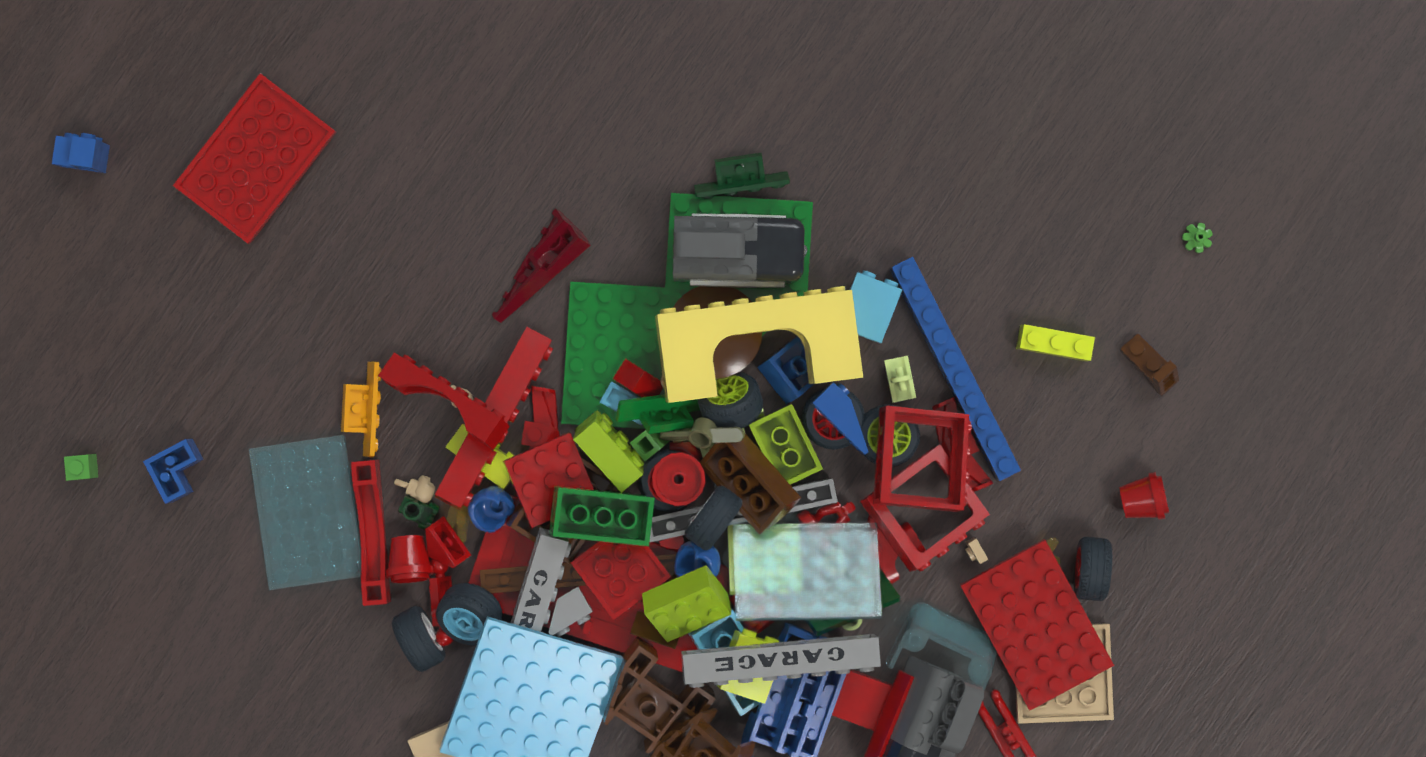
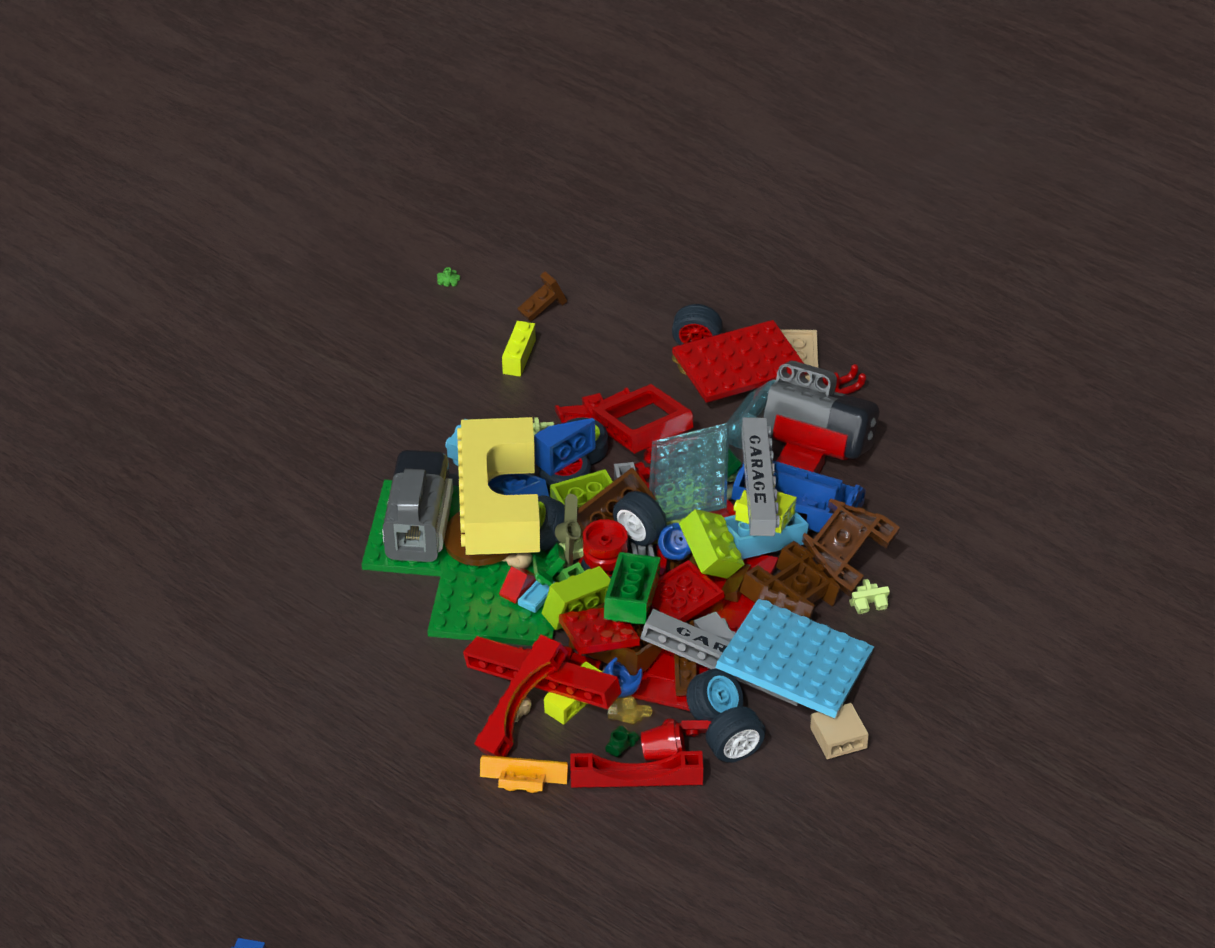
camera: 90 degrees left, 45 degrees down
(168, 466) = (565, 917): blue brick -> none
(254, 158) = (278, 846): red plate -> none
(306, 512) = (615, 822): clear light blue plate -> none
(418, 489) = (599, 739): tan piece -> none
(445, 544) = (652, 715): red slope -> none
(556, 250) = (402, 643): dark red wedge -> none
(741, 174) = (354, 520): dark green bracket -> none
(955, 369) = (539, 399): blue brick -> none
(959, 453) = (605, 392): red piece -> none
(975, 551) = (681, 395): tan plate -> none
(1144, 498) = (644, 303): red piece -> none

